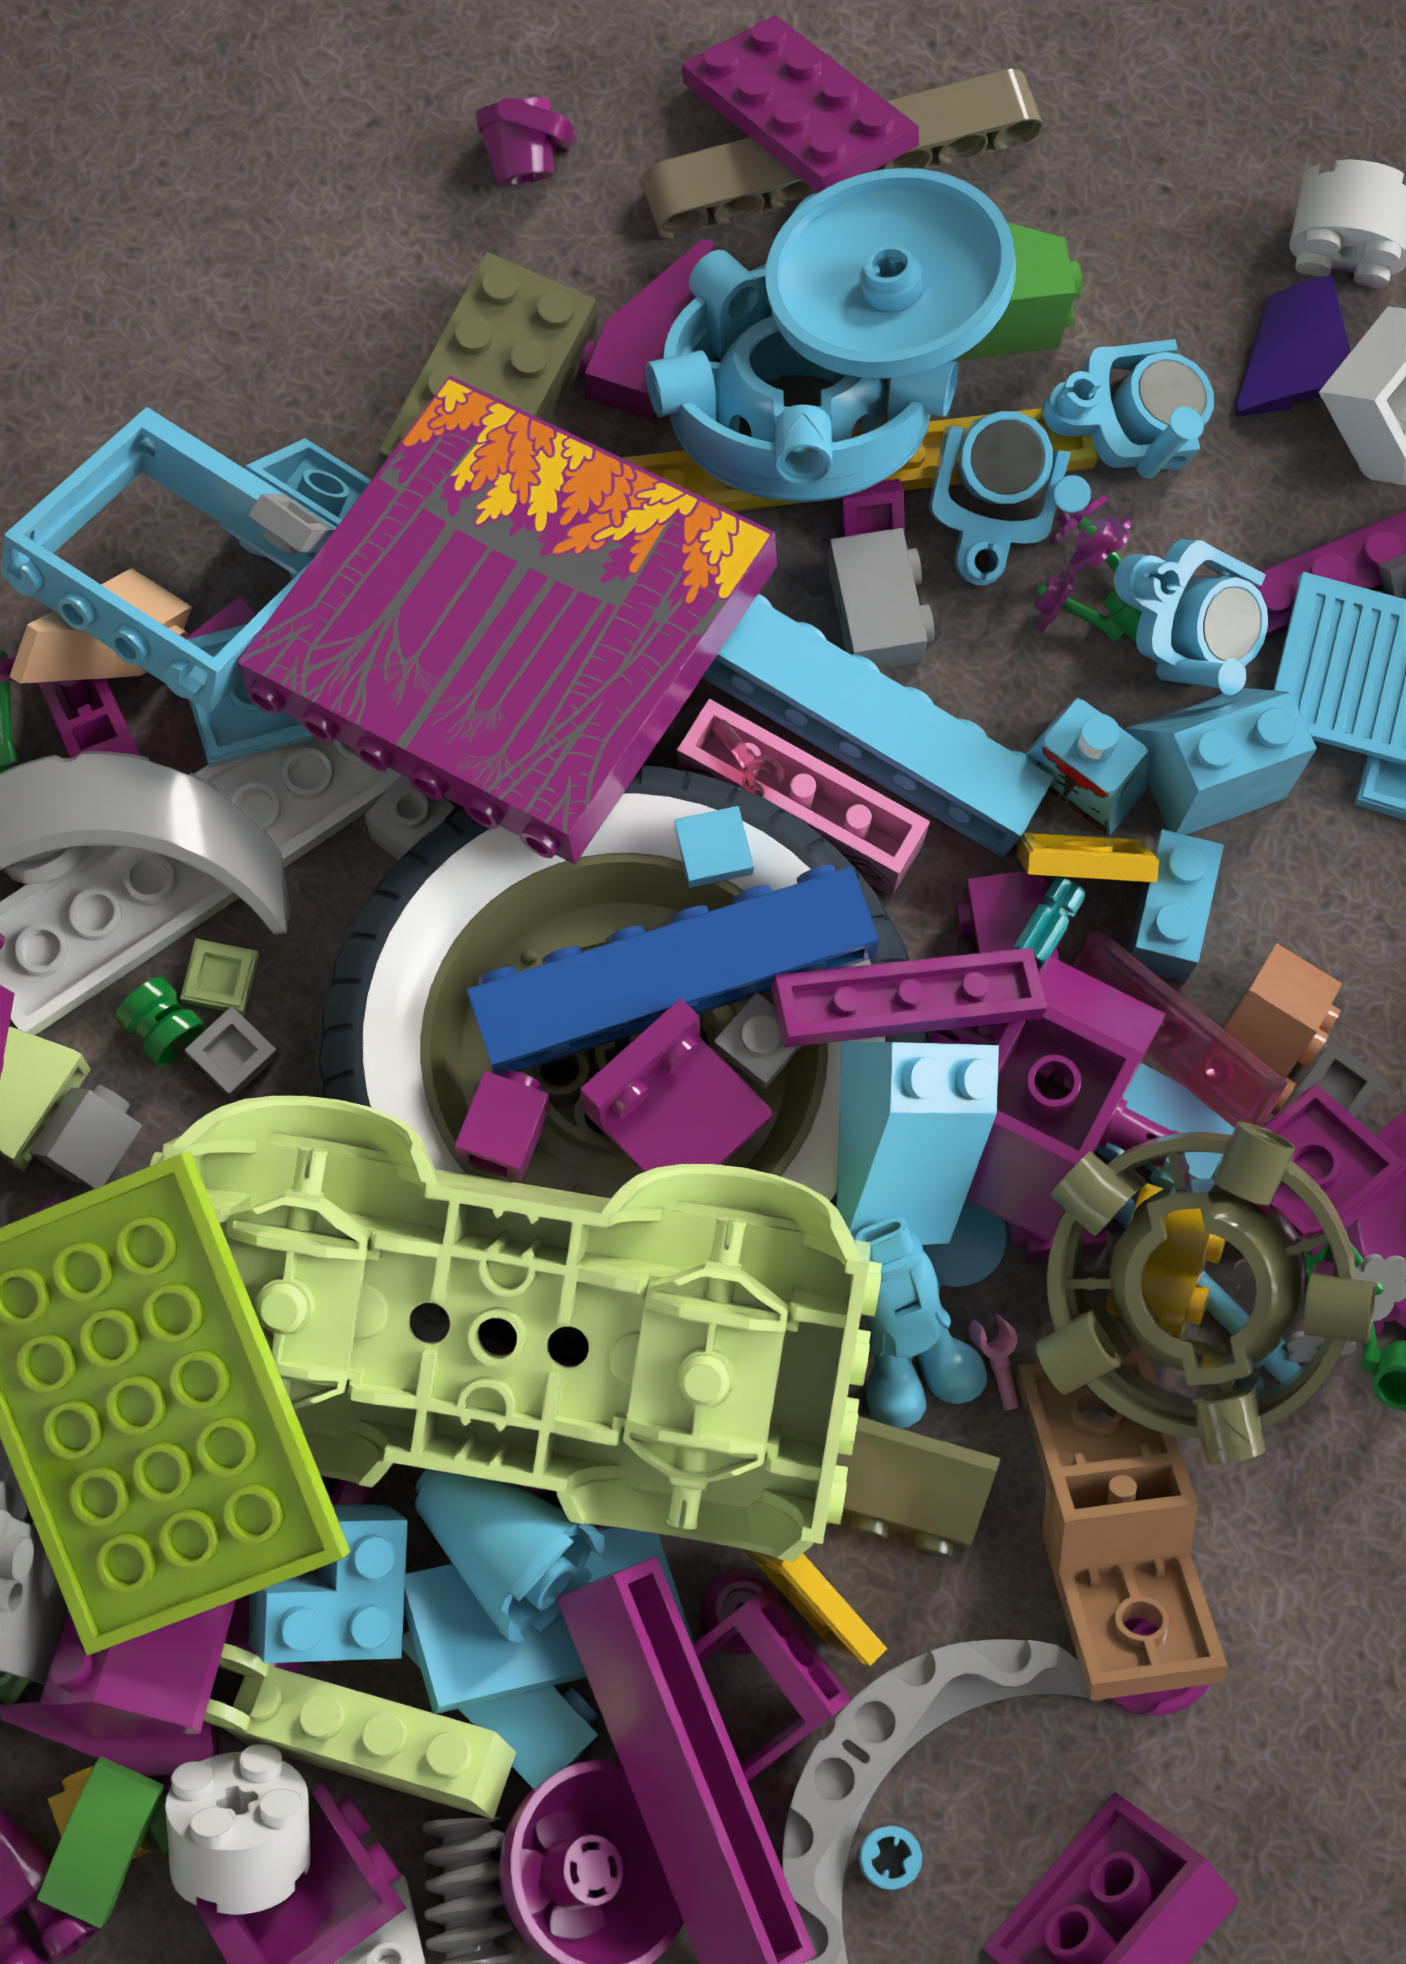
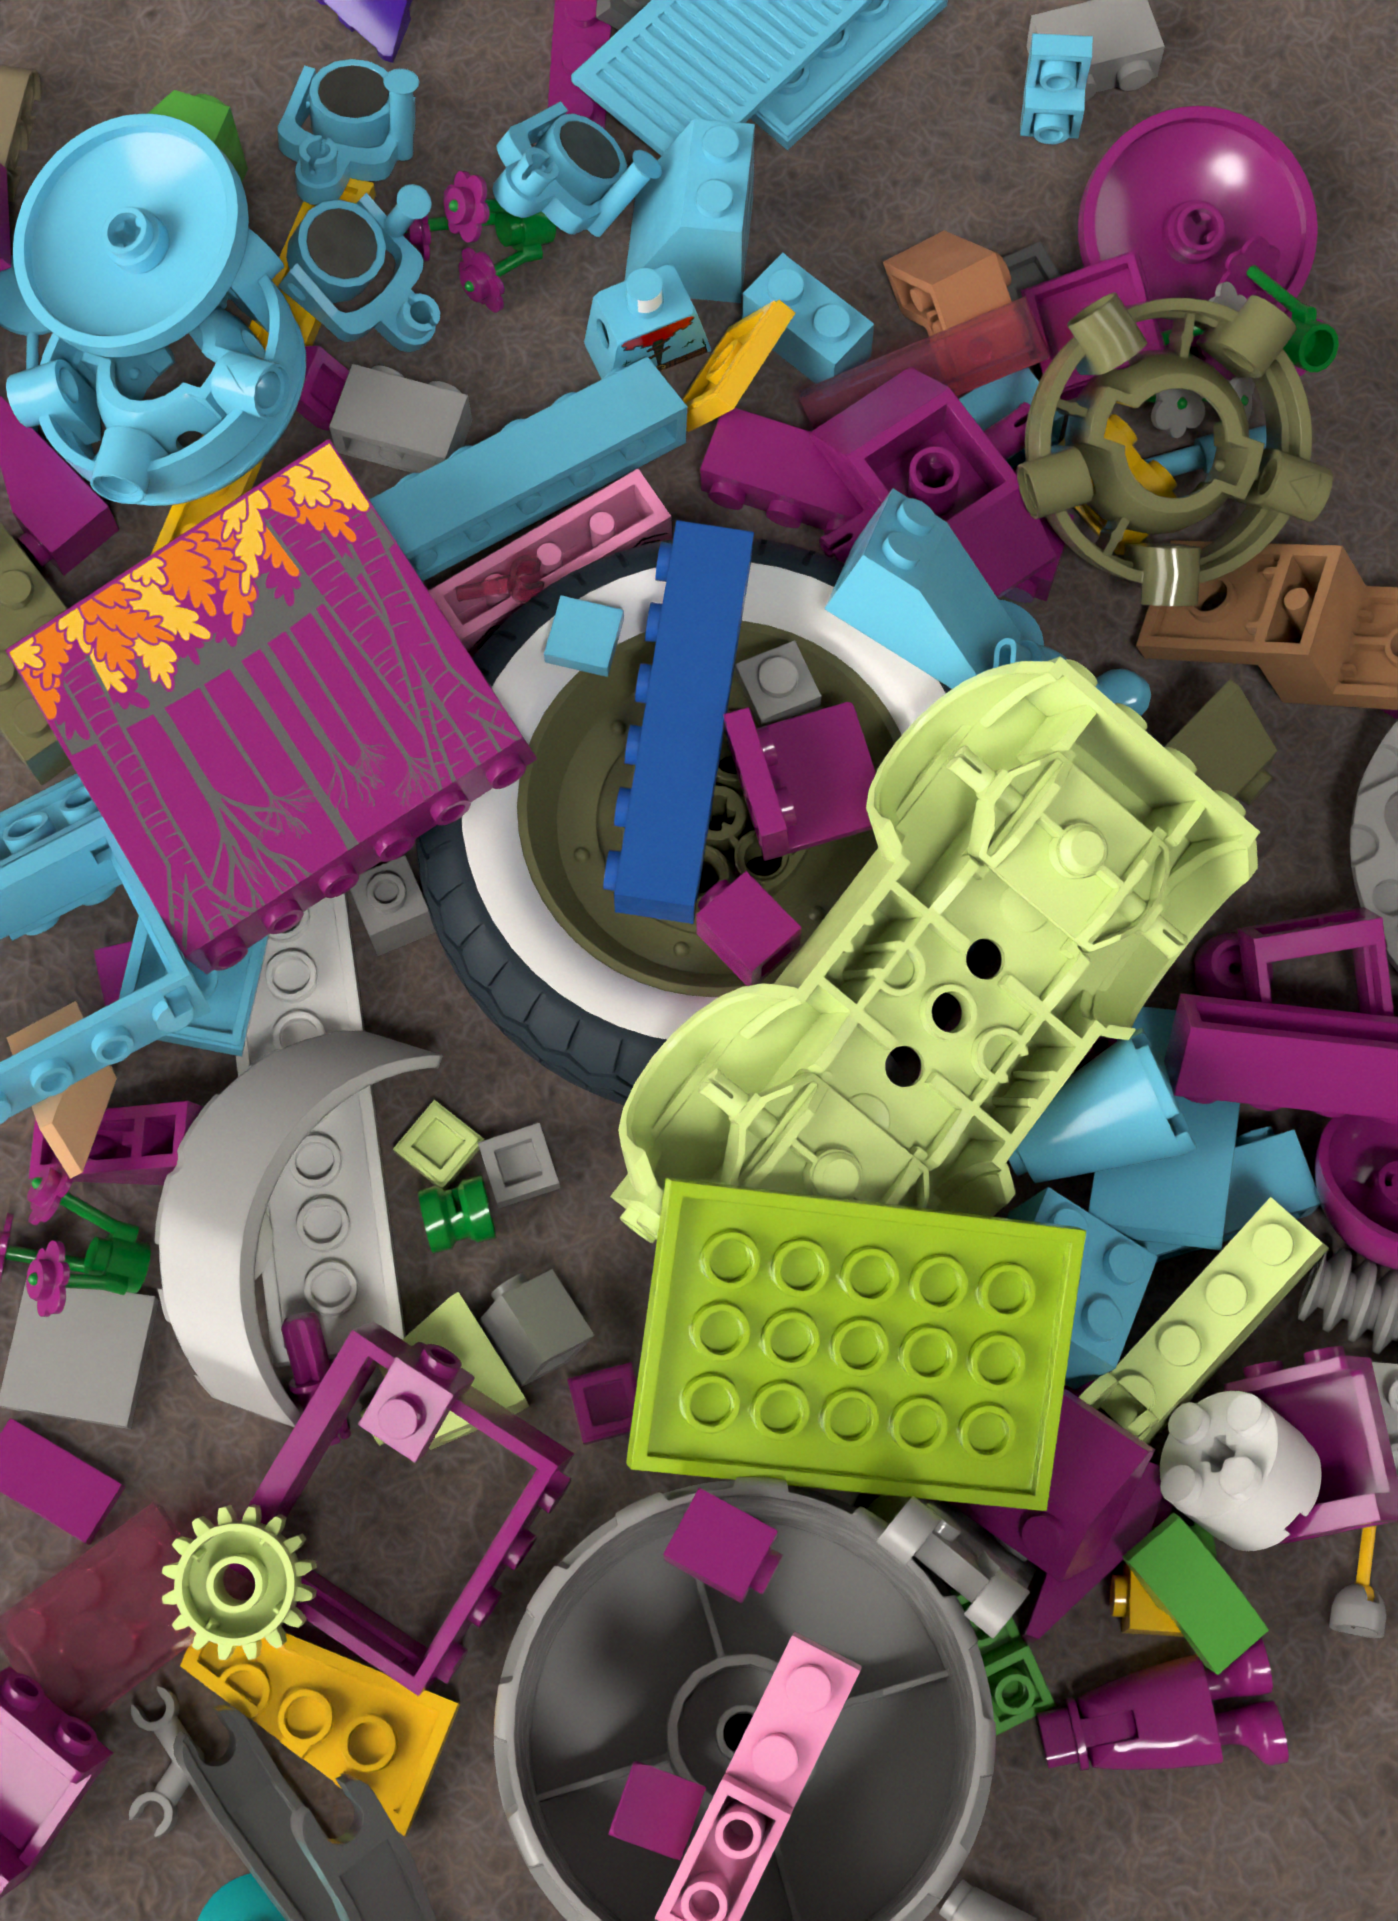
camera: 55 degrees left, 0 degrees up
(290, 524) = (74, 853): light grey plate -> none
(821, 1606) = (1279, 891): yellow tile -> none
(908, 997) = (808, 543): magenta plate -> none
(998, 1354) = (1112, 654): bright pink hand -> none
(1051, 919) = (787, 432): teal axle -> none

